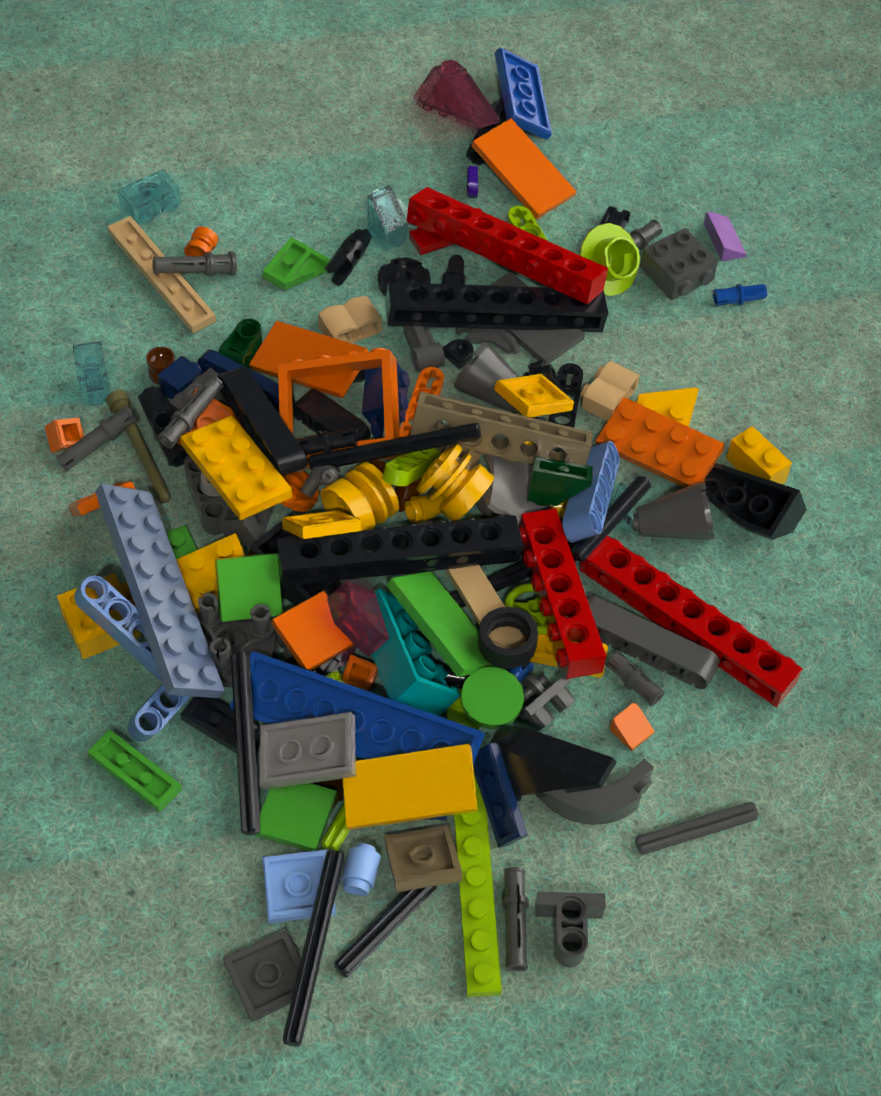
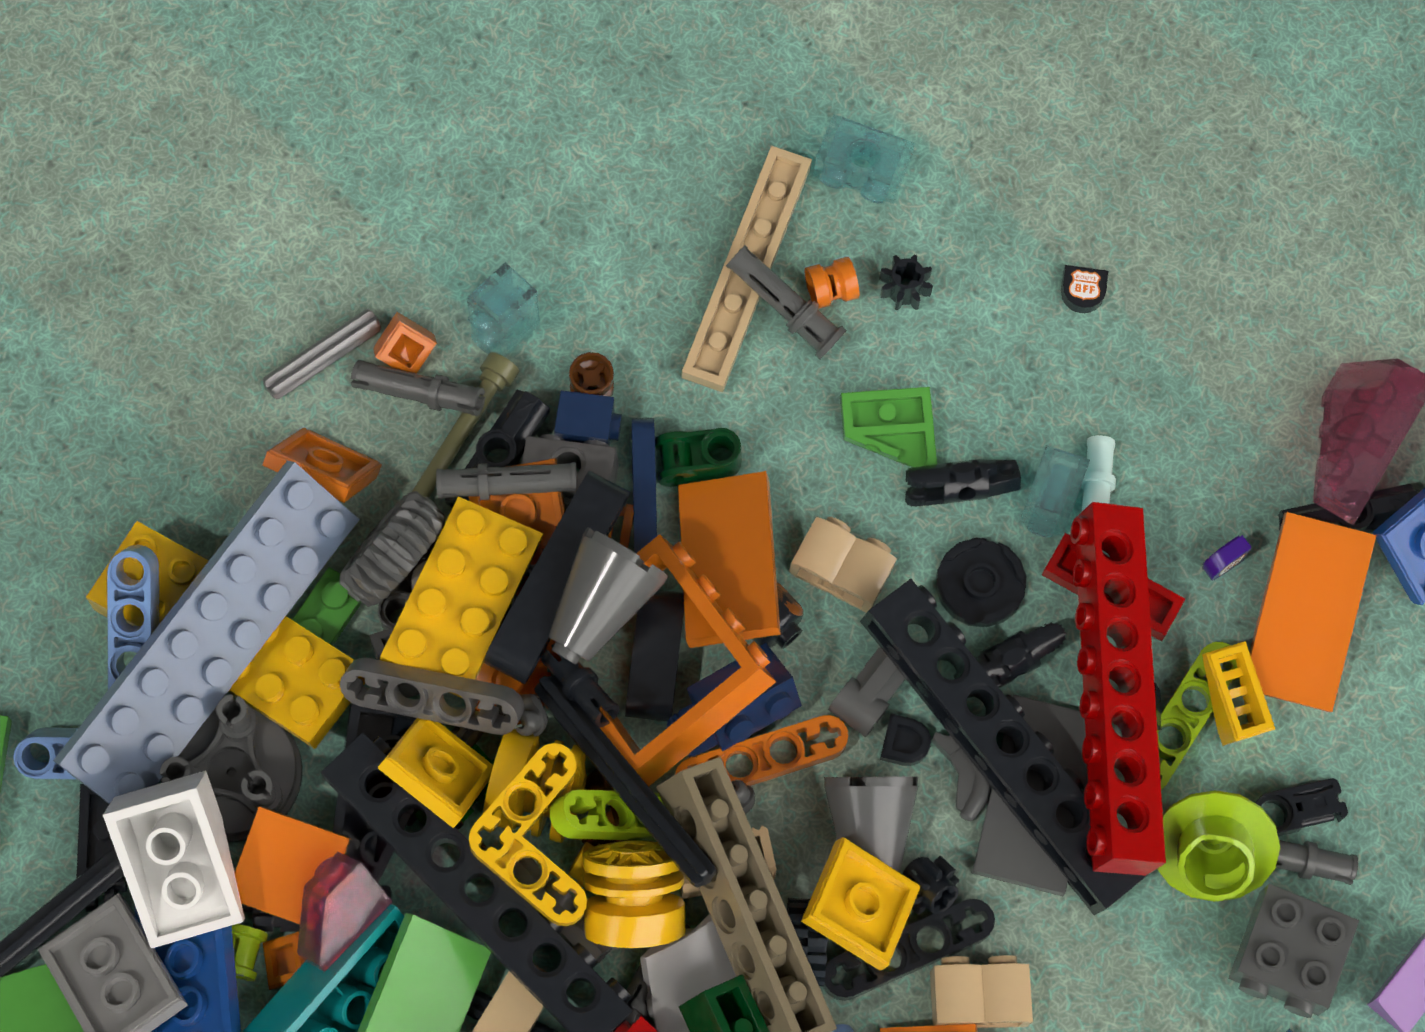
camera: 55 degrees right, 15 degrees up
(34, 474) = (322, 354): none -> flat silver axle
(179, 488) = (392, 549): none -> dark grey gear
(228, 217) = (901, 293): none -> black gear
(245, 583) = (291, 741): bright green tile -> none
(271, 669) = (175, 858): none -> white slope
(278, 499) = (431, 703): none -> flat silver beam
(291, 160) = (1083, 288): none -> tile
(292, 393) = (600, 596): none -> dark grey cone
(392, 507) = (517, 847): none -> yellow beam
(542, 214) = (1254, 700): none -> yellow slope

